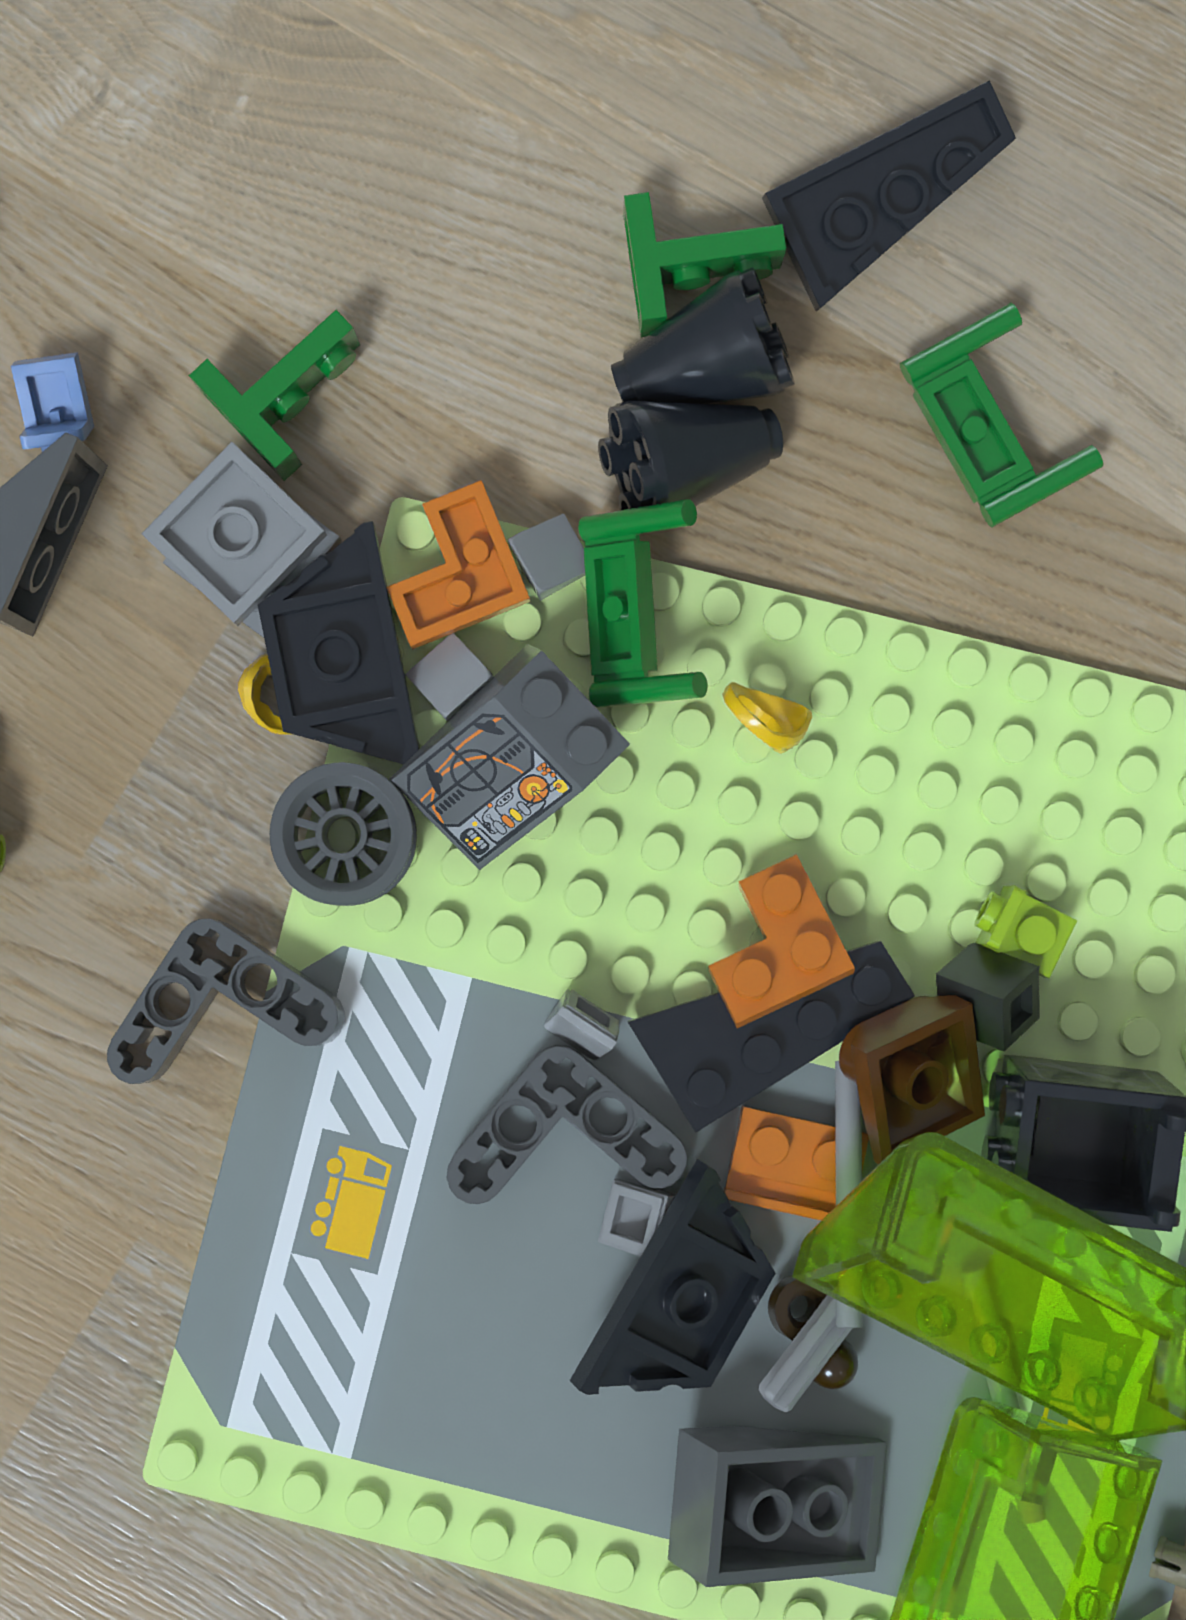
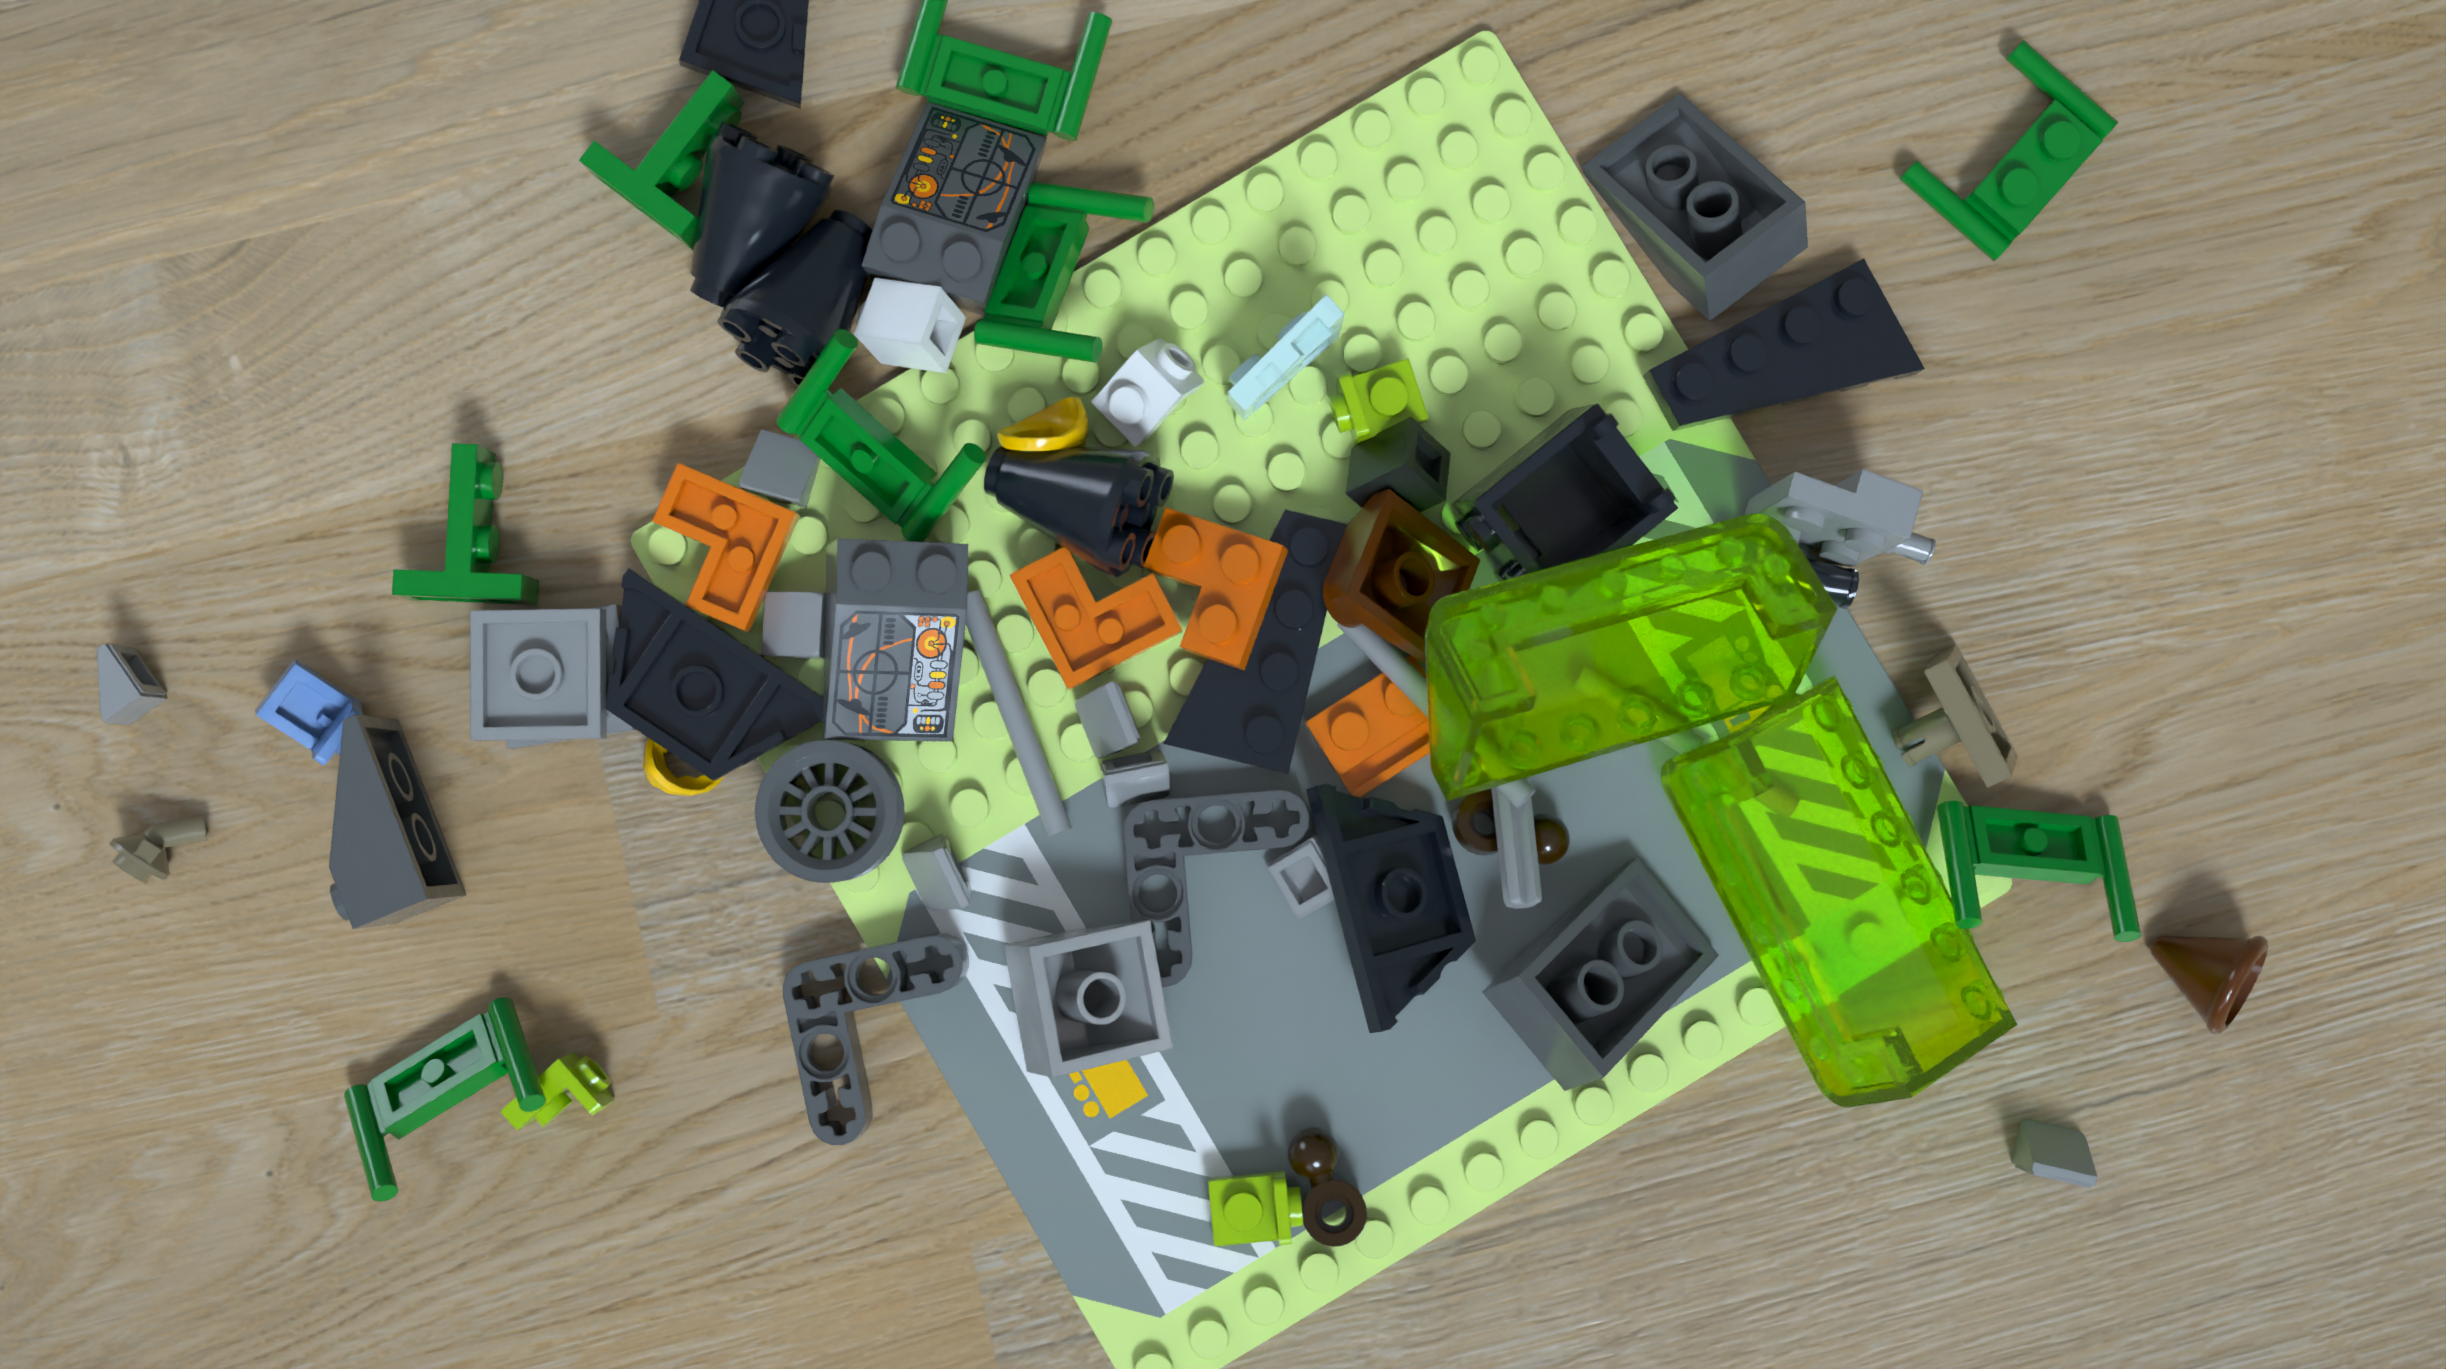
camera: 45 degrees left, 0 degrees up
(363, 1418) = (1254, 1208): none -> lime bracket
(375, 955) = (938, 874): none -> light grey slope
(393, 1151) = (1088, 997): none -> light grey slope
(443, 1425) = (1314, 1156): none -> dark brown plate
(540, 899) = (1015, 716): none -> light grey bar
(603, 966) = (1107, 720): none -> light grey slope
(648, 884) = (1088, 634): none -> orange plate
(742, 543) = (909, 325): none -> white brick
(744, 793) = (1085, 499): none -> black cone
(855, 491) = (954, 205): none -> dark grey slope
(867, 757) = (1148, 389): none -> white bracket
(876, 594) = (1041, 267): none -> green plate
(1010, 833) = (1297, 347): none -> light aqua wing

